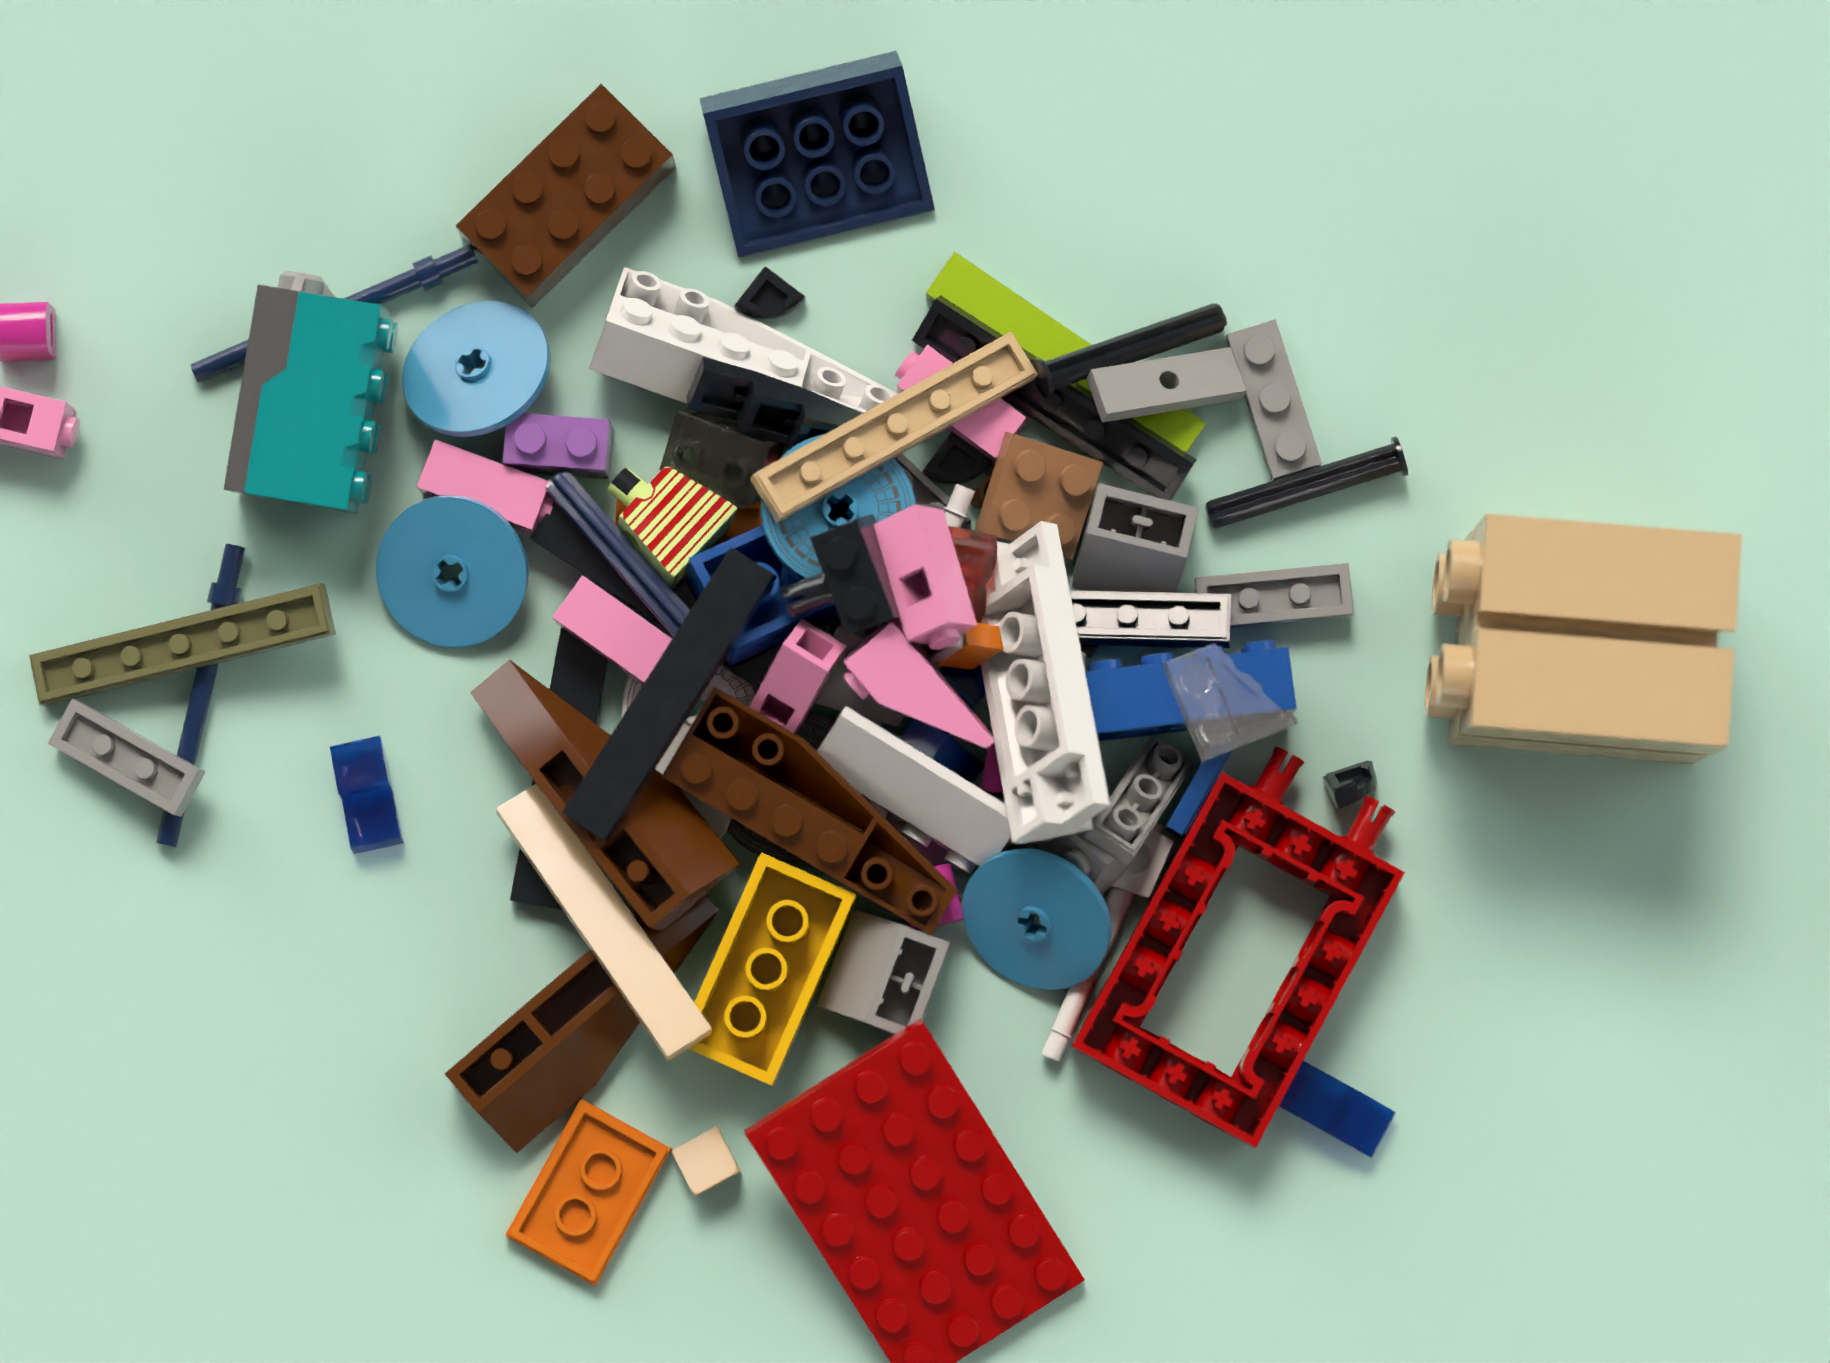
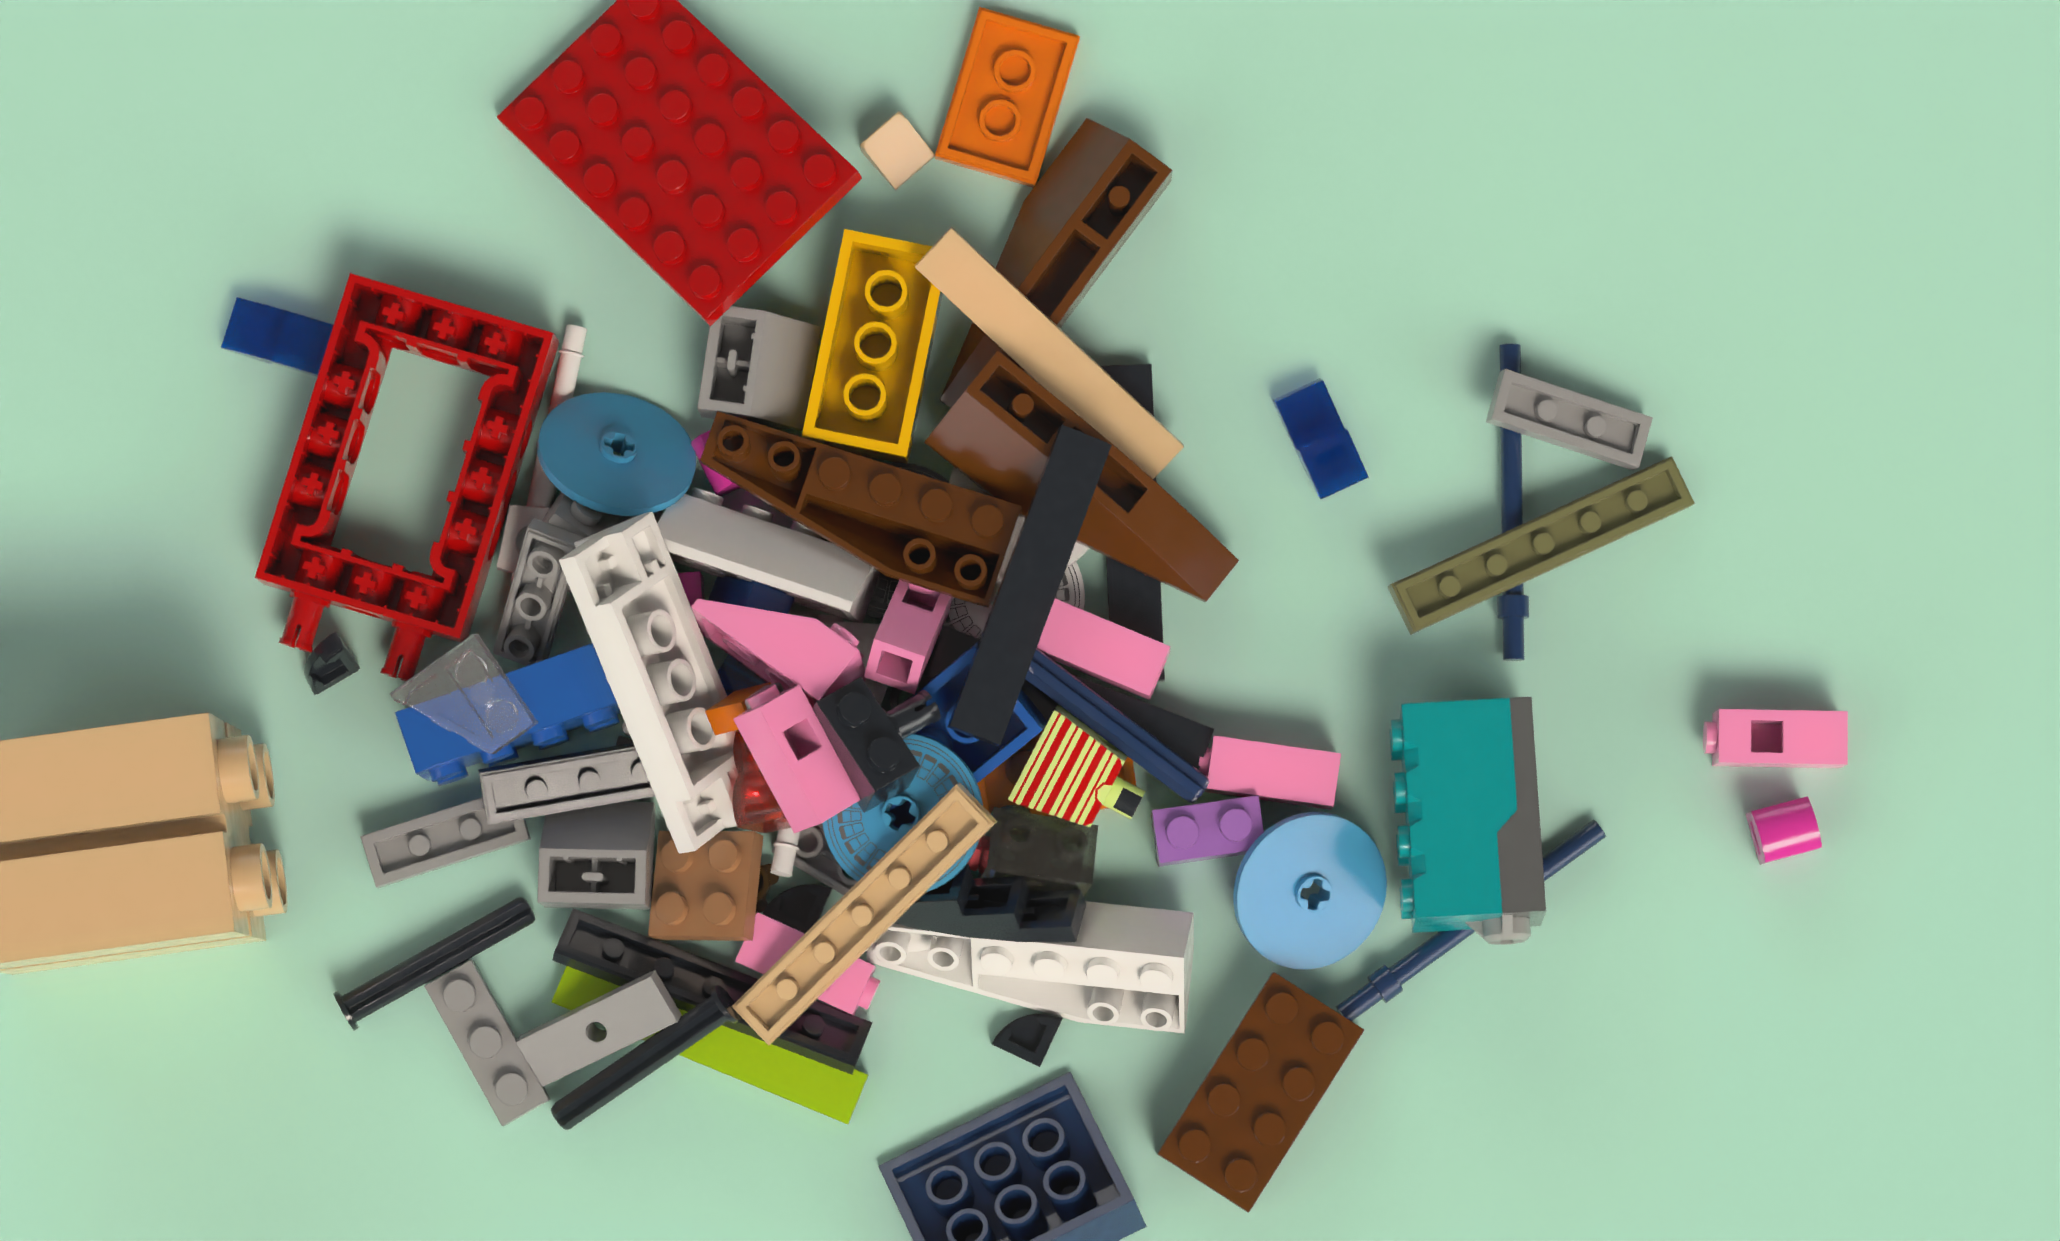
camera: 165 degrees right, 0 degrees up
(443, 609) = (1289, 716): dark azure piece -> none
(1195, 795) = (488, 606): blue tile -> none

